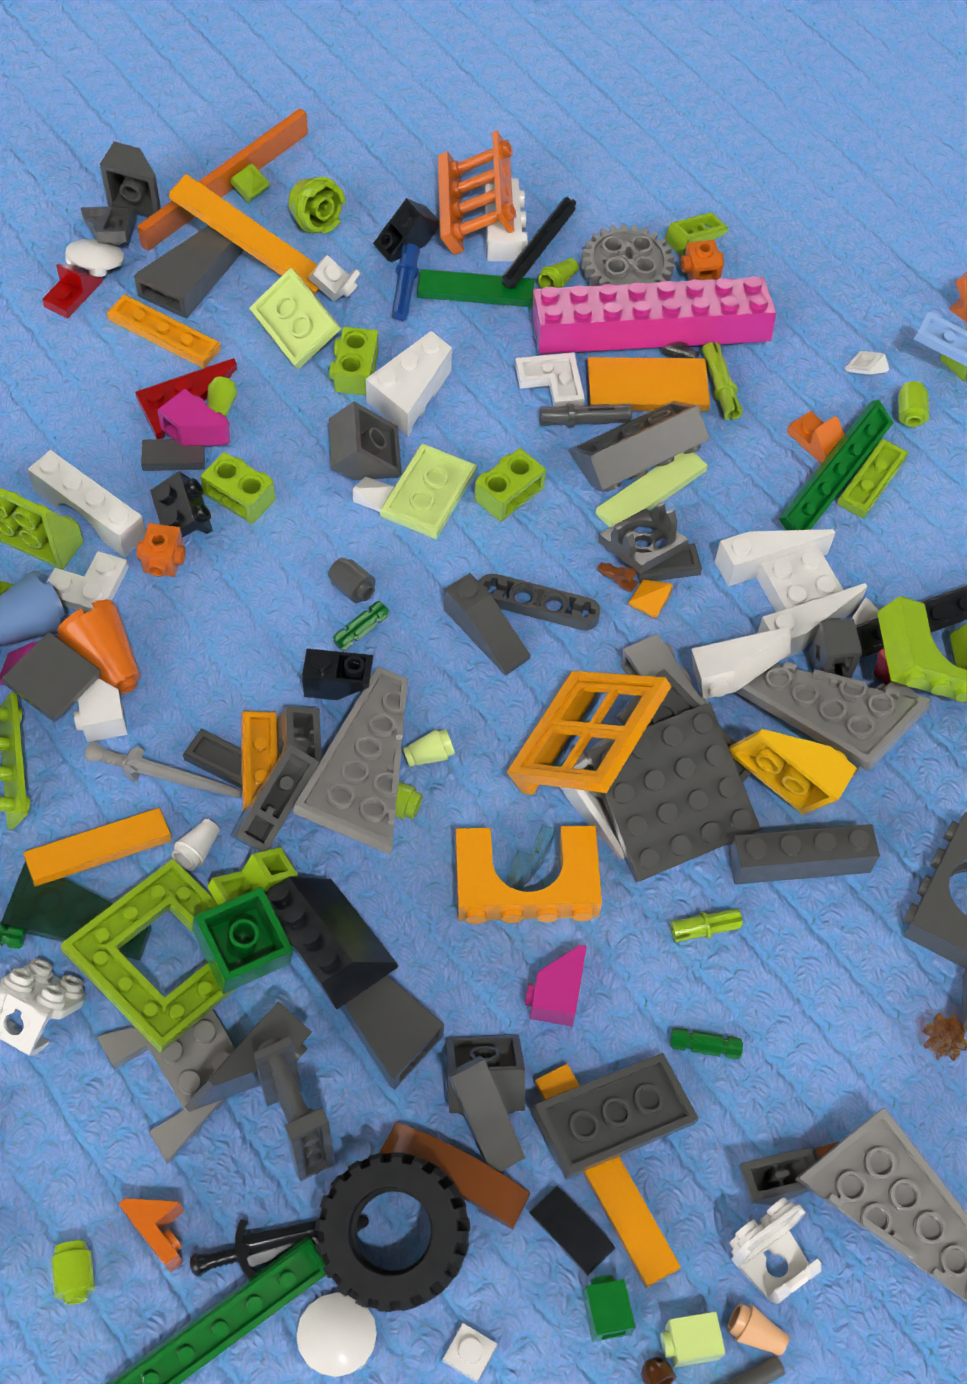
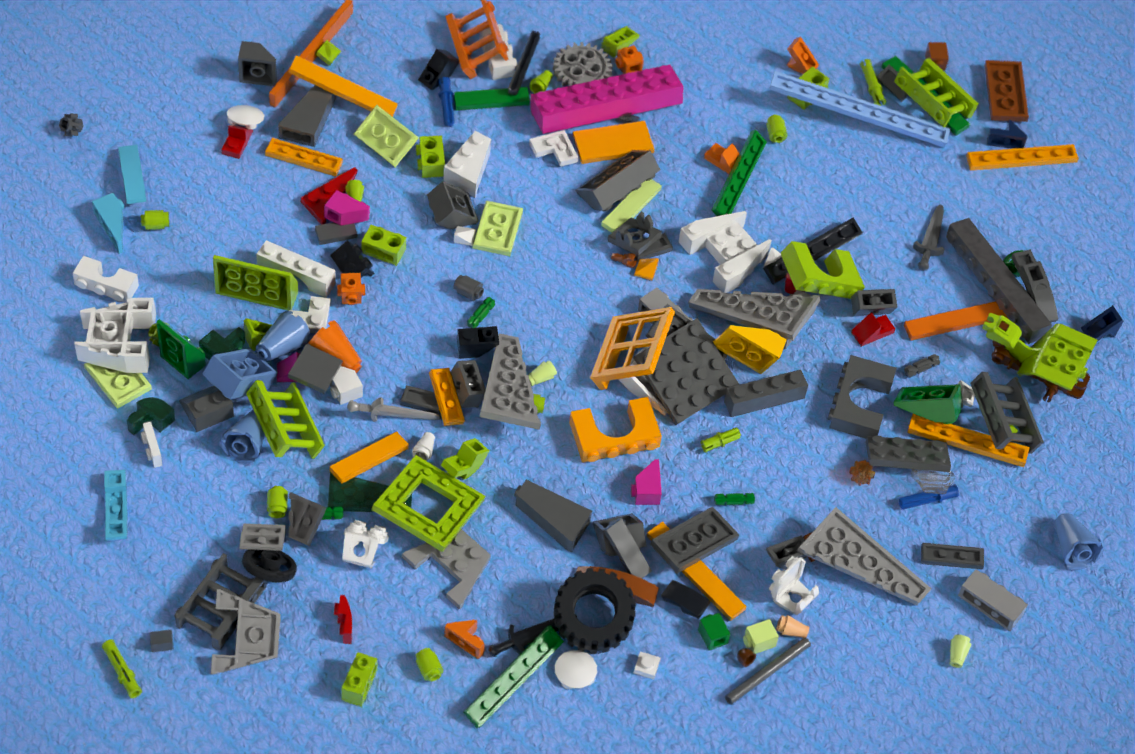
camera: 15 degrees left, 5 degrees down
(110, 224) = (247, 93): flat silver wing -> none
(239, 1069) = (497, 542): dark grey slope -> none
(242, 940) = (471, 486): green brick -> none
(274, 799) = (464, 413): dark grey slope -> none
(306, 1130) = (528, 560): dark grey fence -> none
(316, 204) = (377, 60): lime cone -> none
(330, 937) = (515, 478): black slope -> none
(333, 279) = (402, 108): white bracket -> none
(485, 623) = (554, 299): dark grey slope -> none
(516, 480) = (546, 216): lime brick -> none
(526, 864) = (614, 424): clear light blue slope -> none
(540, 596) = (581, 285): dark grey beam -> none
(593, 414) = (574, 168): dark grey pin -> none
(725, 389) = (661, 137): lime pin -> none
(736, 662) = (706, 295): white slope -> none
(836, 647) = (760, 277): dark grey brick -> none
(868, 363) = (744, 107): white slope -> none
(872, 478) = (761, 177): lime tile -> none

